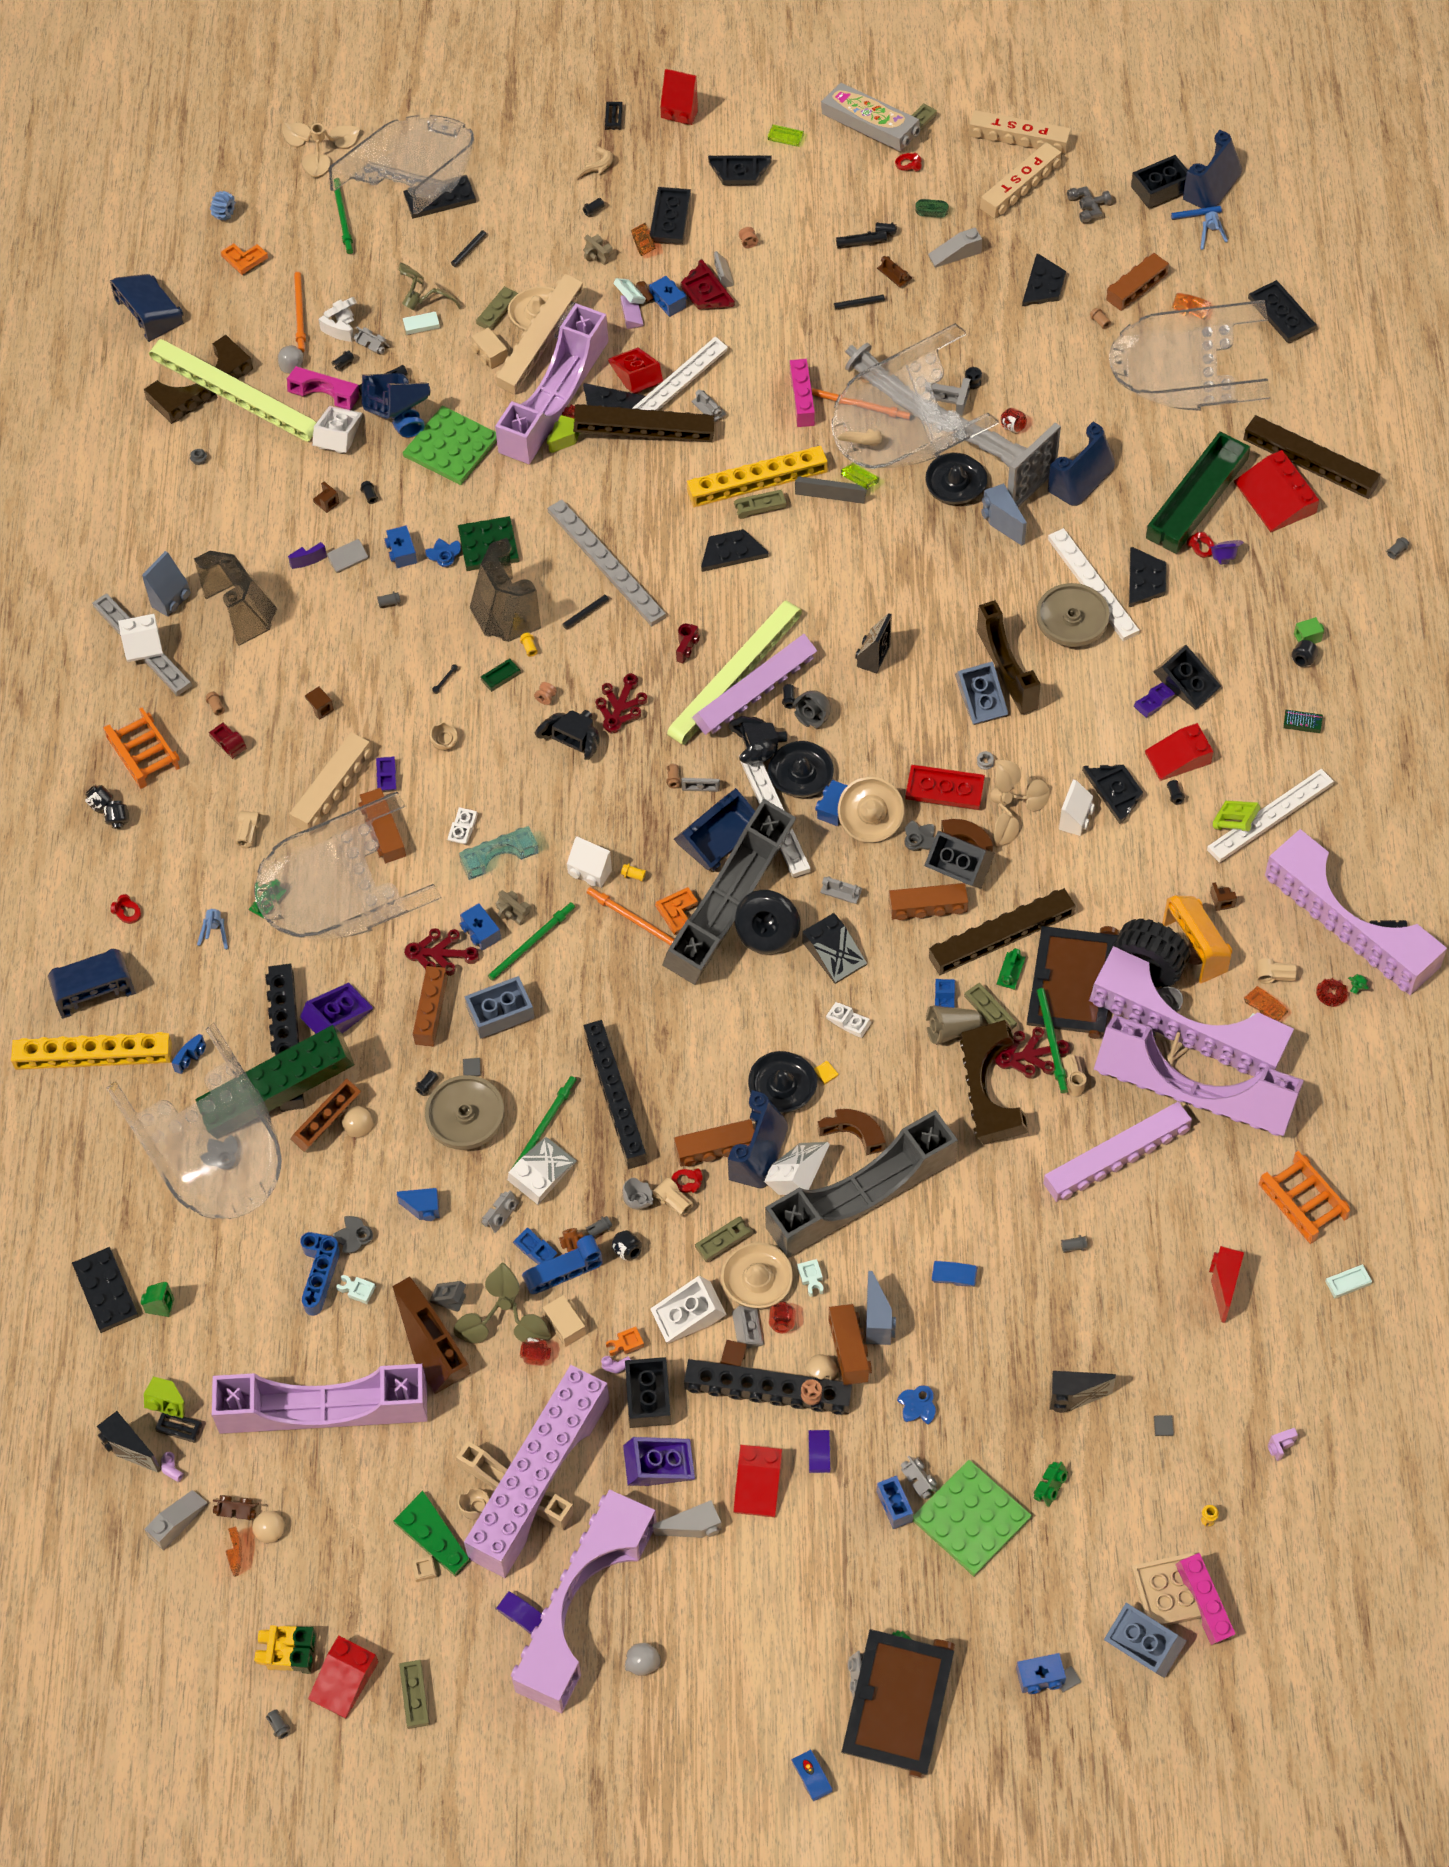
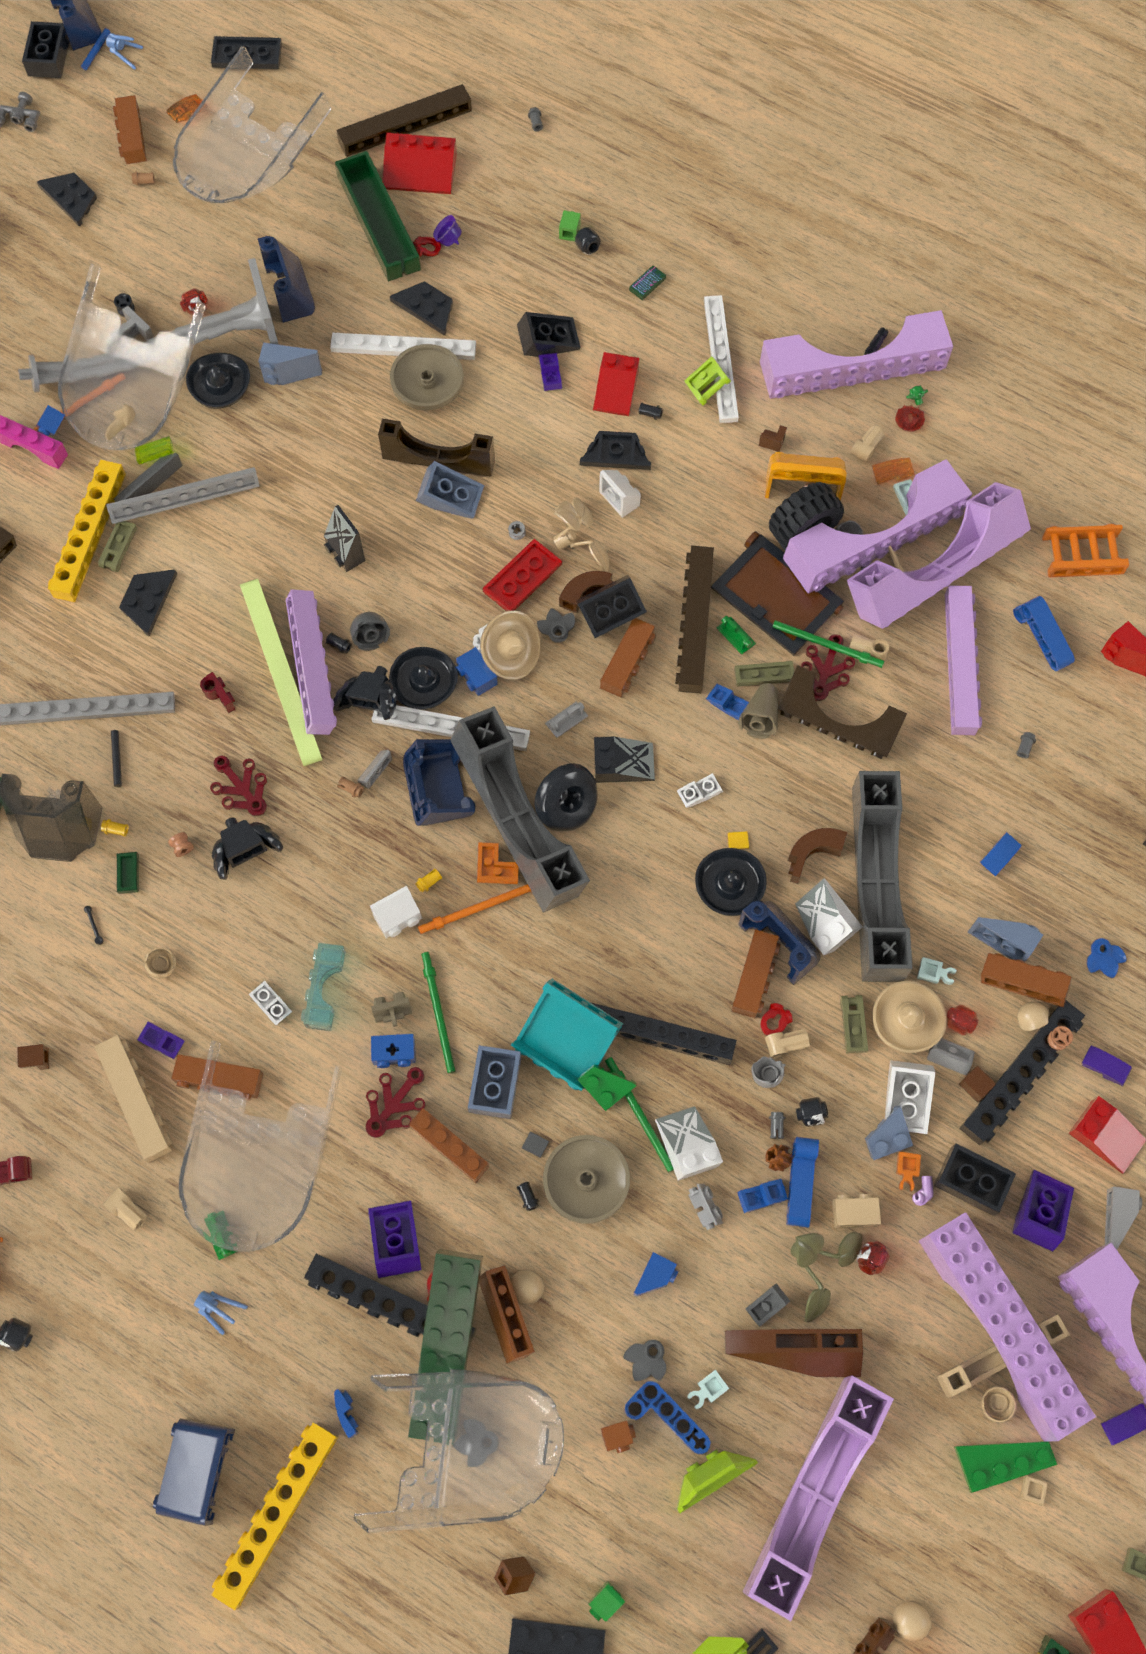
camera: 60 degrees left, 10 degrees up
(125, 901) = (123, 1380): red piece -> none
(140, 1230) = (514, 1575): none -> reddish brown panel
(282, 1243) = (618, 1436): none -> dark orange brick
(291, 1324) = (710, 1476): none -> lime wedge
(547, 1084) = (605, 1086): none -> green wing
(568, 1033) = (566, 1034): none -> teal panel
(645, 1313) = (889, 1135): none -> sand blue wing
(825, 392) = (49, 421): none -> blue brick
(834, 517) = (183, 495): none -> light grey plate
(1192, 1203) = (1046, 632): none -> blue beam

